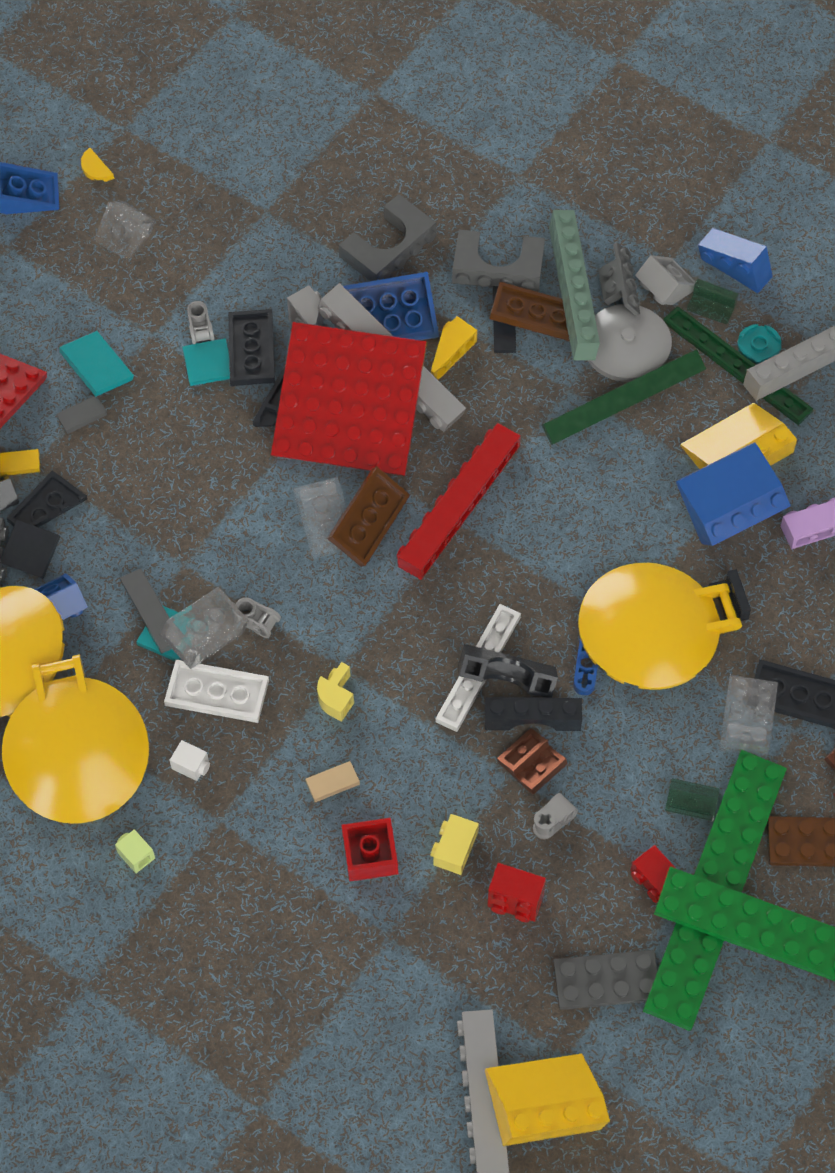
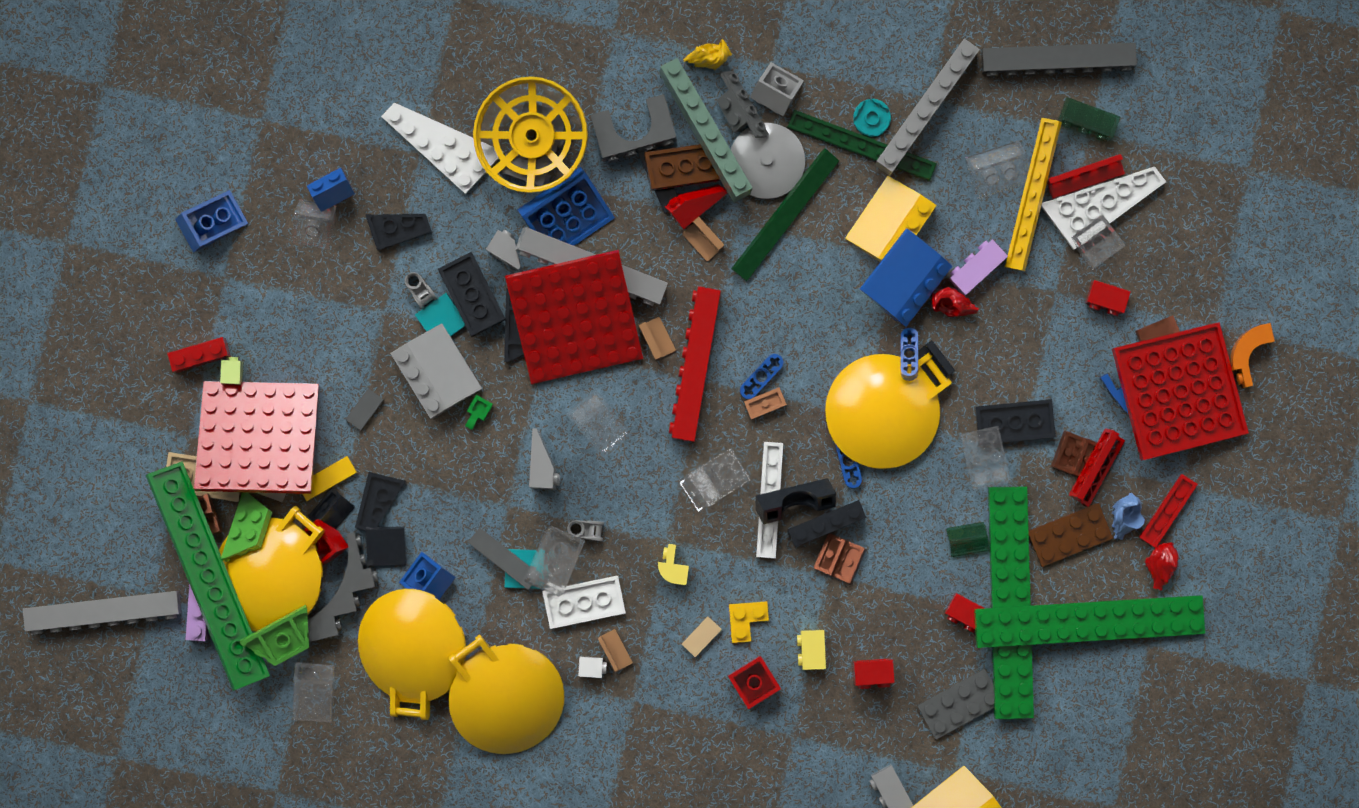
camera: 25 degrees left, 25 degrees up
(94, 167) = (257, 171): yellow tile -> none
(96, 363) = (354, 360): teal tile -> none
(134, 850) = (584, 753): yellowish green brick -> none
(157, 195) = (330, 189): none -> blue slope
(175, 404) = (436, 371): none -> light grey slope
(199, 457) = (479, 409): none -> green plate
(204, 264) = (397, 228): none -> black wing
(225, 756) = (615, 650): none -> medium nougat panel
(236, 520) = (542, 469): none -> light grey slope
(298, 219) = (443, 146): none -> white wing
(368, 516) = (633, 410): reddish brown plate -> none
(384, 210) = (518, 134): none -> yellow dish
(391, 777) = (742, 615): none -> yellow plate
(424, 622) = (714, 480): none -> clear slope
(428, 462) = (657, 338): none -> medium nougat panel
(454, 342) = (630, 222): yellow slope -> none
(518, 568) = (765, 403): none -> nougat plate
(524, 348) = (691, 205): none -> red slope
(525, 388) = (703, 239): none -> medium nougat panel
(530, 533) = (747, 383): none -> blue beam
(556, 813) = (875, 593): light grey piece -> none
(608, 227) = (709, 55): none -> yellow hair
(704, 582) = (909, 347): none -> blue beam
(712, 301) = (820, 95): clear green panel -> none
(737, 258) = (824, 46): blue wedge -> none
(775, 545) = (952, 303): none -> red hair

